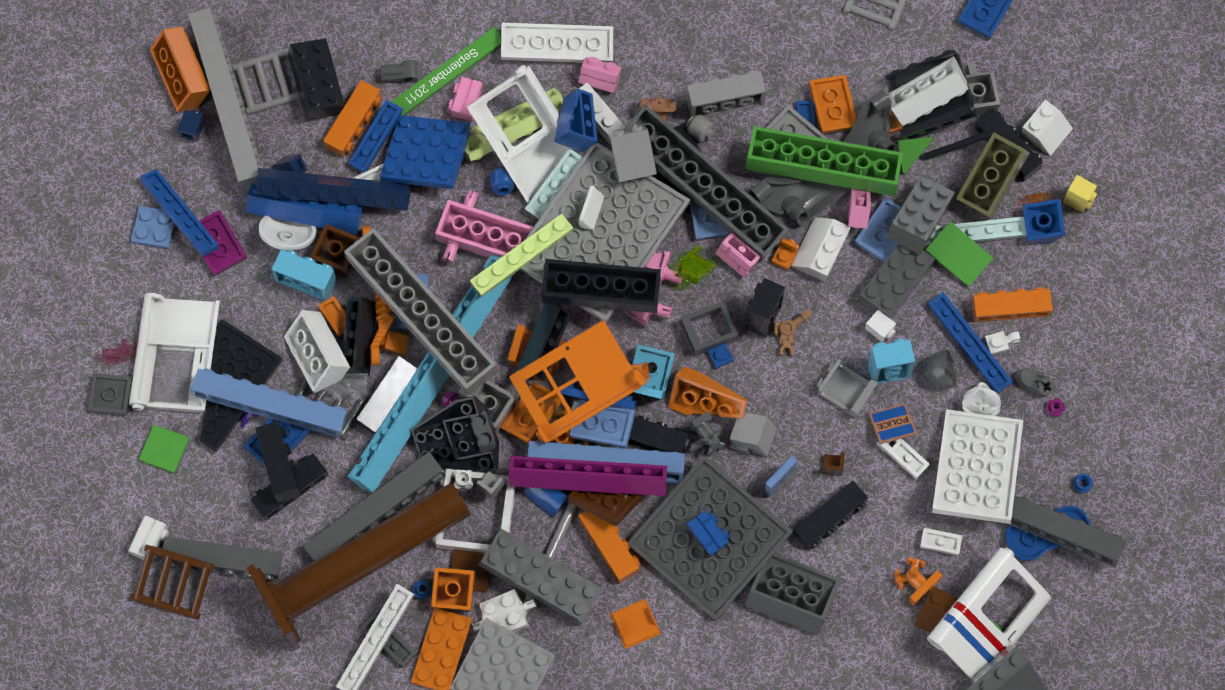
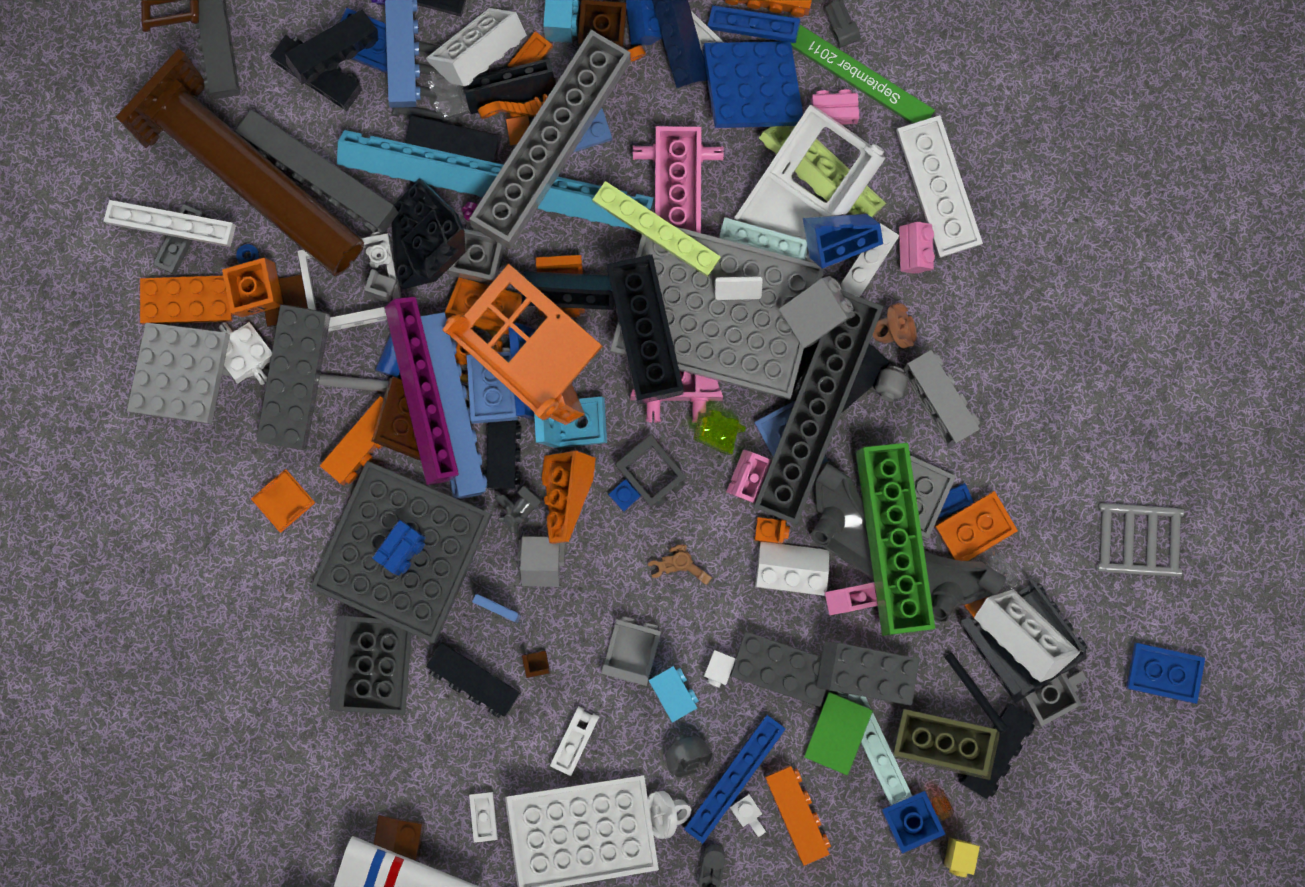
camera: 70 degrees right, 10 degrees up
(501, 181) = (746, 180): blue head -> none
(764, 307) = (690, 525): black brick -> none
(874, 237) = (838, 629): medium blue plate -> none
(892, 423) = (605, 718): piece -> none
(912, 150) = (950, 637): bright green tile -> none
(917, 580) = (428, 803): orange piece -> none
(1046, 128) = (1034, 791): white slope -> none

